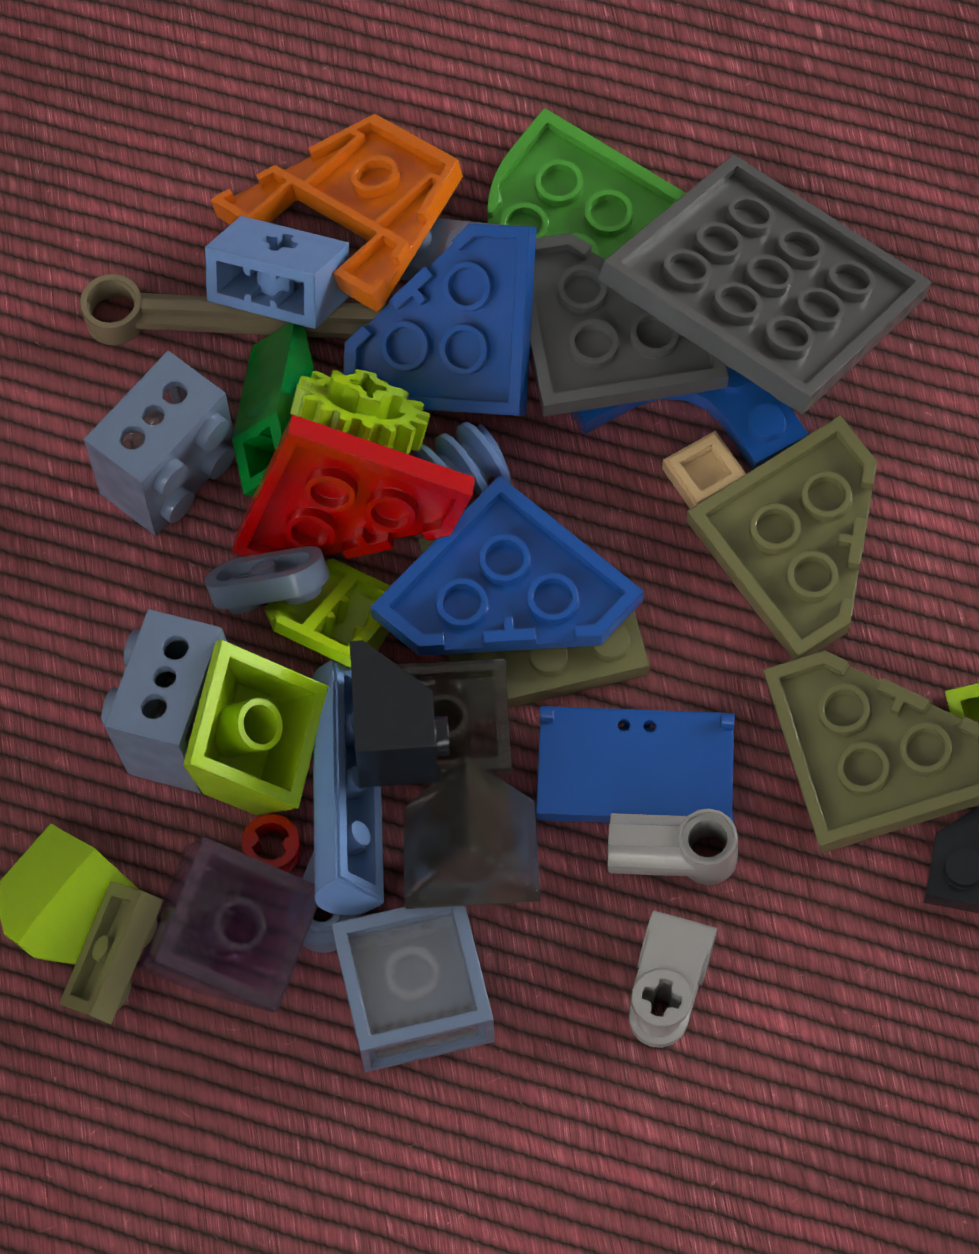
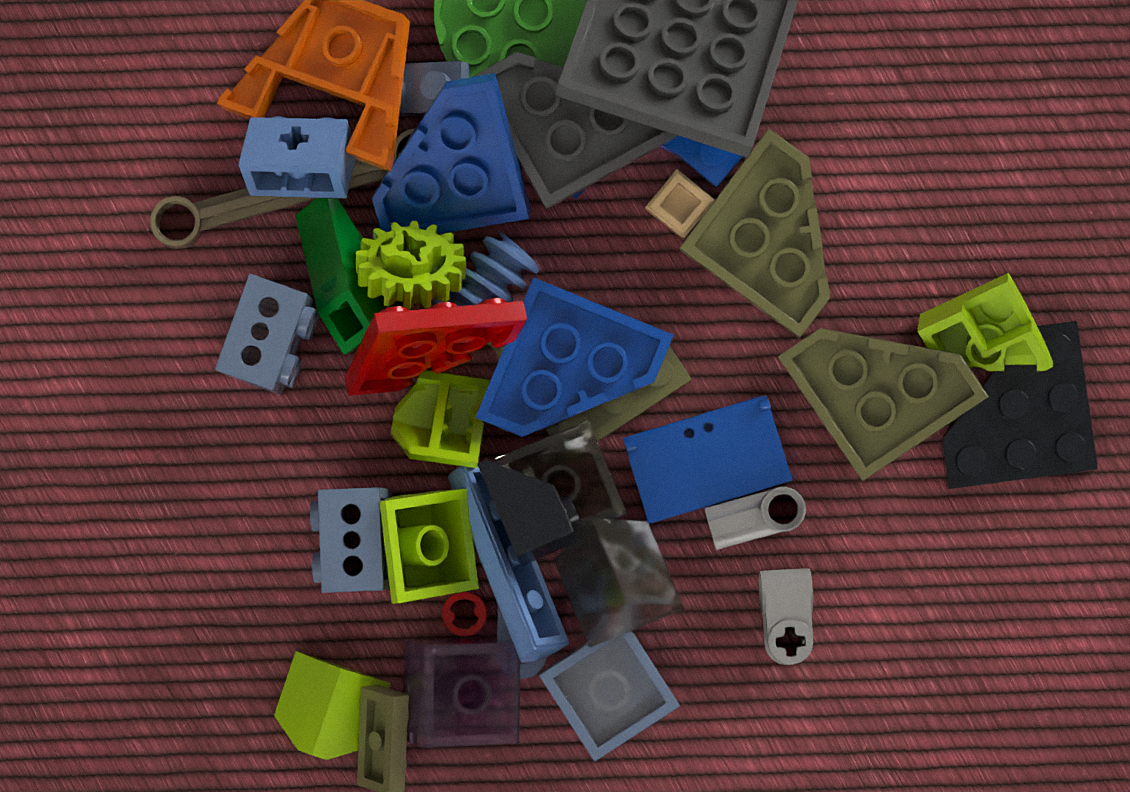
camera: 25 degrees left, 20 degrees up
(267, 578) = (385, 411): sand blue plate -> none

